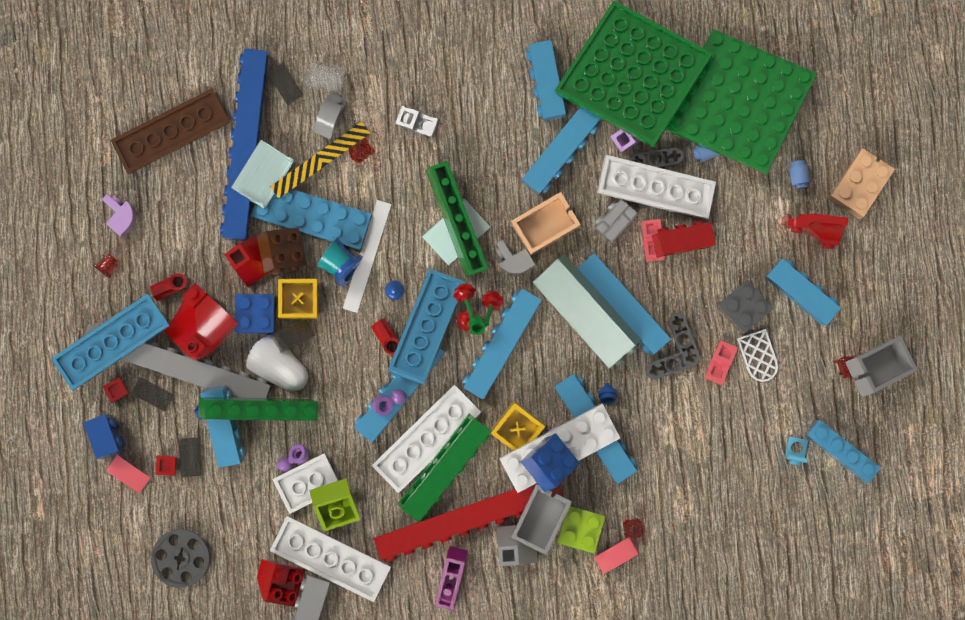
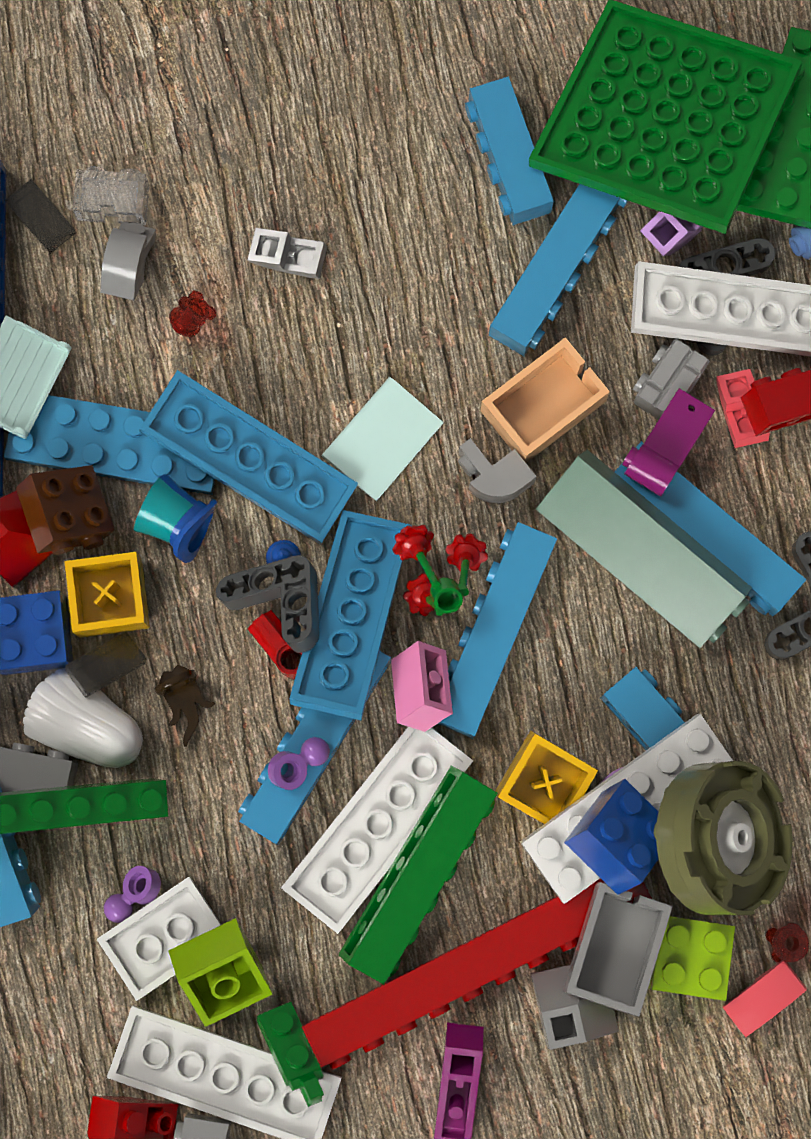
camera: 10 degrees left, 5 degrees down
(320, 160) = (116, 342): sticker -> none
(331, 356) = (182, 693): none -> dark brown piece
(367, 550) = (292, 1051): none -> green hinge
(368, 252) = (219, 536): white sticker -> none
(382, 234) = (248, 457): none -> dark azure plate
(392, 307) = (283, 587): none -> dark grey beam
(456, 219) = (381, 411): green brick -> none
(458, 369) = (421, 686): none -> bright pink brick
(602, 470) = (723, 838): none -> olive piece
(608, 256) = (668, 443): none -> magenta door
(608, 394) = (703, 697): blue plate -> none

